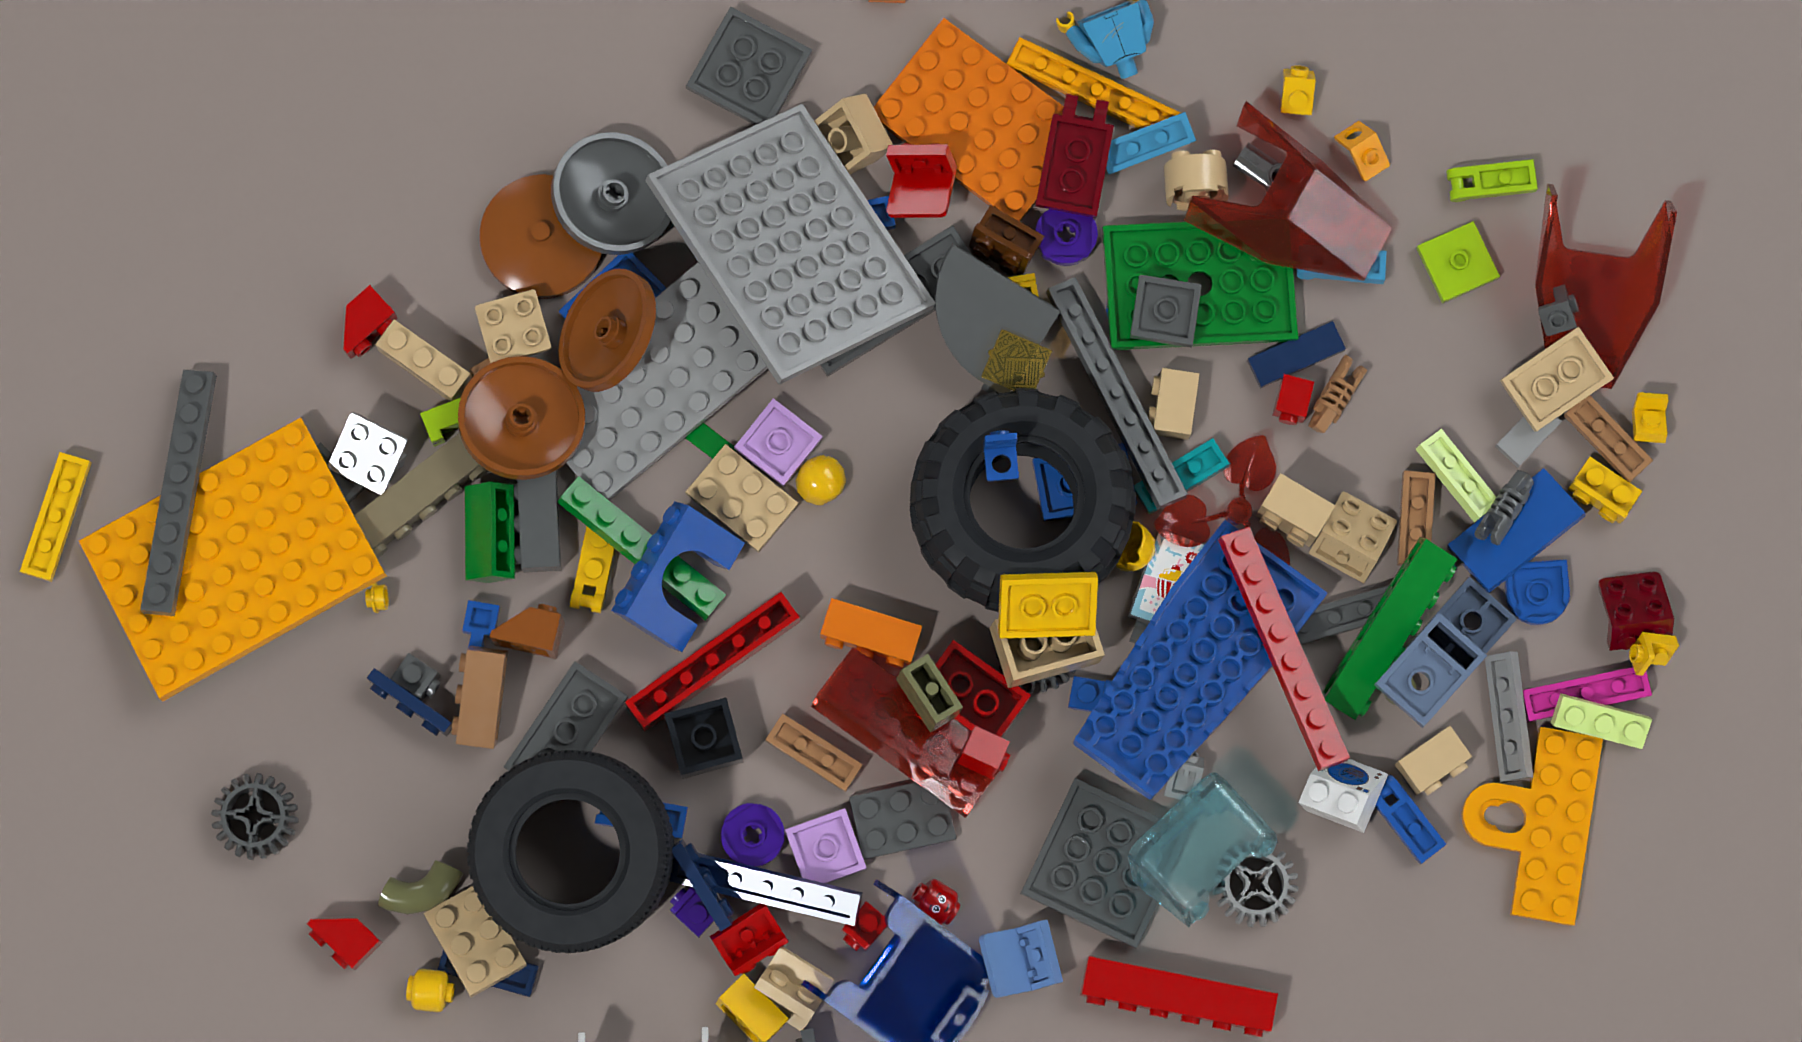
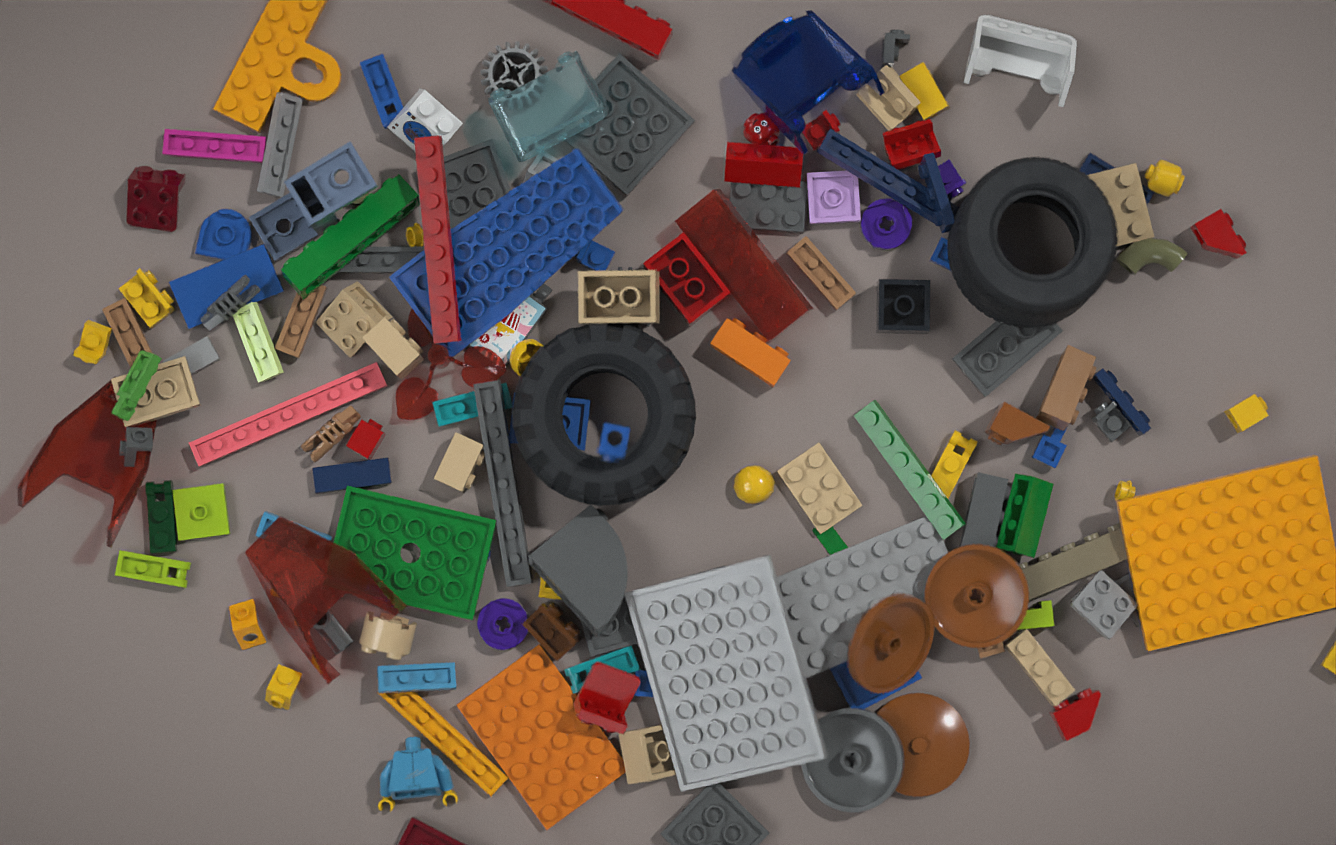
camera: 155 degrees left, 5 degrees up
(178, 493) = (1260, 617): dark grey plate -> none
(255, 733) = (1247, 412): none -> yellow brick
(255, 802) = (1252, 345): dark grey gear -> none
(513, 326) = (962, 673): tan bracket -> none
(642, 598) = (877, 468): blue arch -> none
(713, 661) = (880, 363): red brick -> none
(778, 442) = (778, 523): lavender plate -> none
(916, 231) = (621, 659): none -> teal plate
(922, 860) = (763, 164): none -> red brick
(929, 693) = (722, 282): olive brick -> none
(984, 753) = (693, 225): brick -> none
(1016, 362) = (575, 526): clear yellow piece -> none
(1020, 959) = (710, 69): medium blue bracket -> none
(1047, 605) = (611, 317): yellow plate -> none
(1075, 160) = (477, 679): dark red tile -> none
(1165, 311) = (445, 535): dark grey plate -> none
(1262, 737) = (473, 180): none -> dark grey plate
(1314, 655) = (415, 235): none -> yellow plate
(1394, 402) = (288, 414): none -> coral plate
(1433, 761) = (352, 125): tan brick -> none
(1502, 242) = (161, 517): none -> dark green plate
(1582, 377) = (135, 384): none -> bright green hinge
(1601, 721) = (210, 120): yellowish green plate -> none
(1652, 649) = (154, 161): yellow bracket -> none

